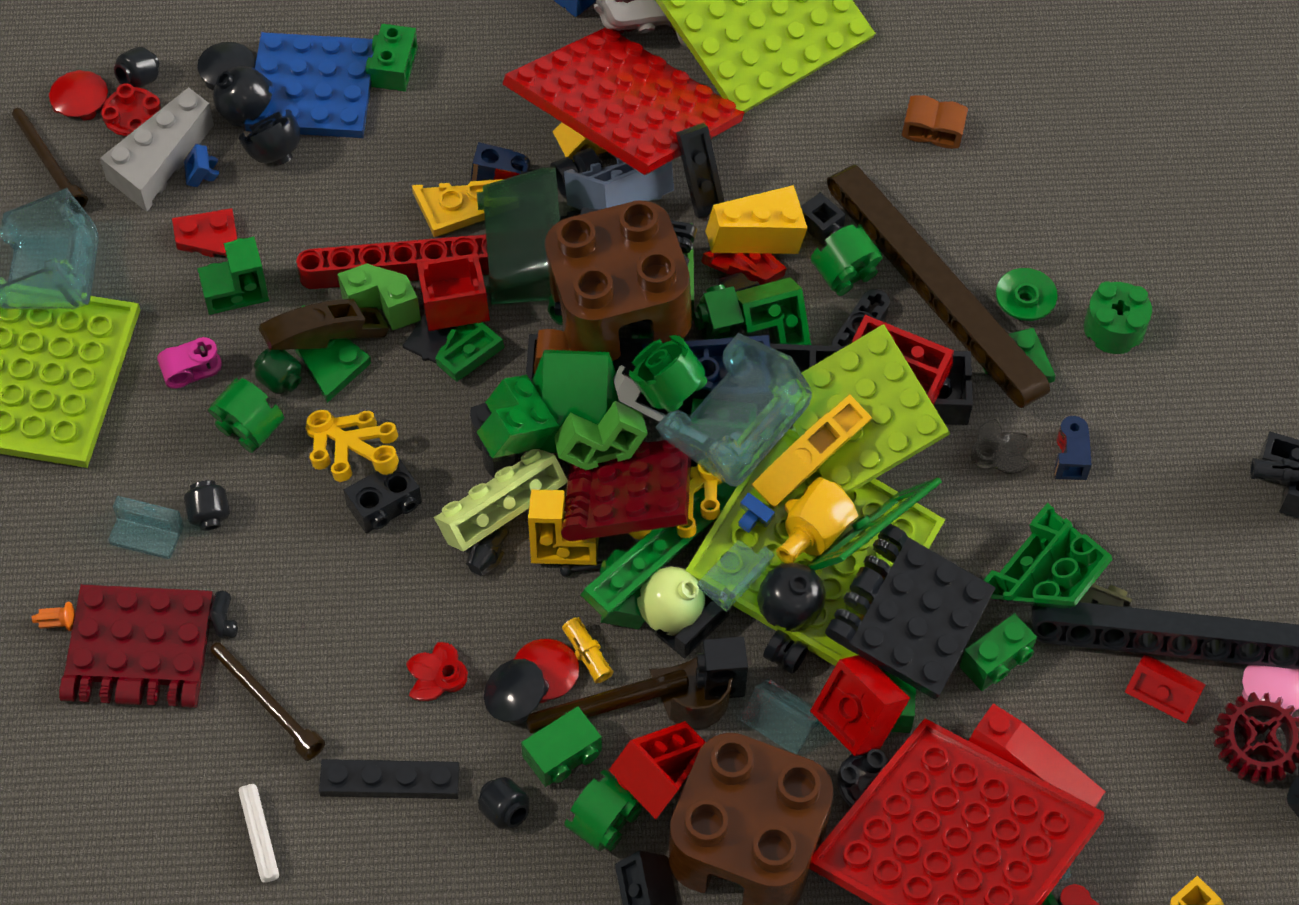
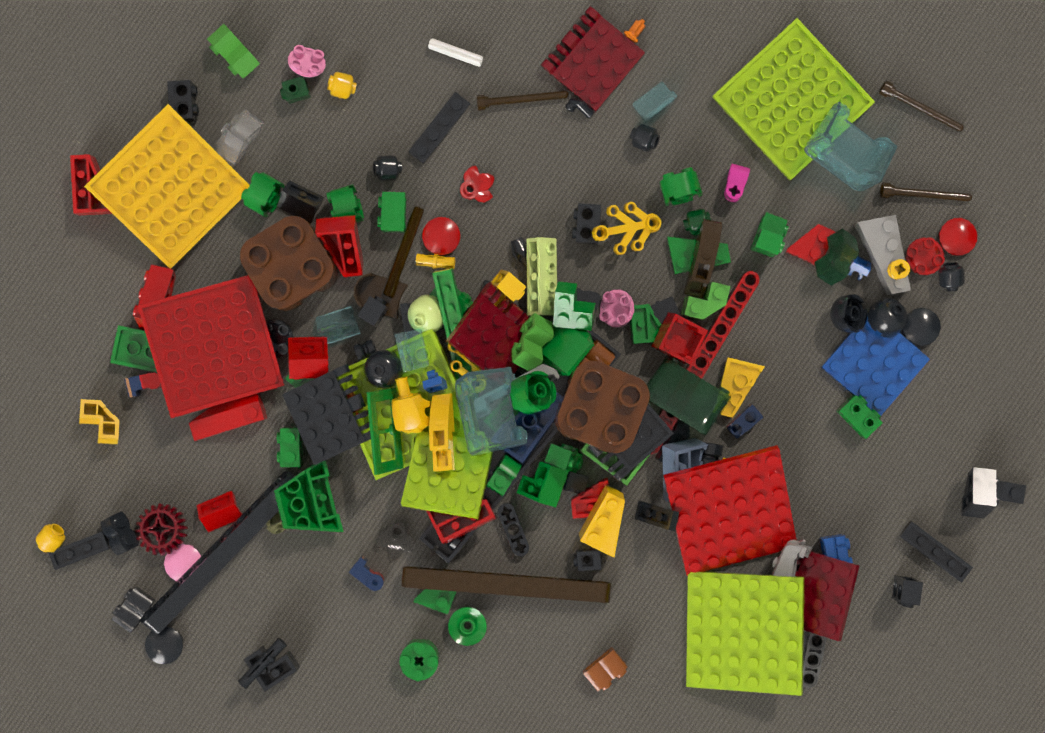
camera: 125 degrees right, 30 degrees up
(167, 111) = (894, 268): none -> yellow wheel
(216, 181) = (835, 265): none -> clear green brick
(467, 385) = (616, 308): none -> bright pink dish
(515, 691) = (437, 211): black dish -> none
(804, 345) = (504, 474): none -> green brick
(847, 259) = (551, 550): green brick -> none

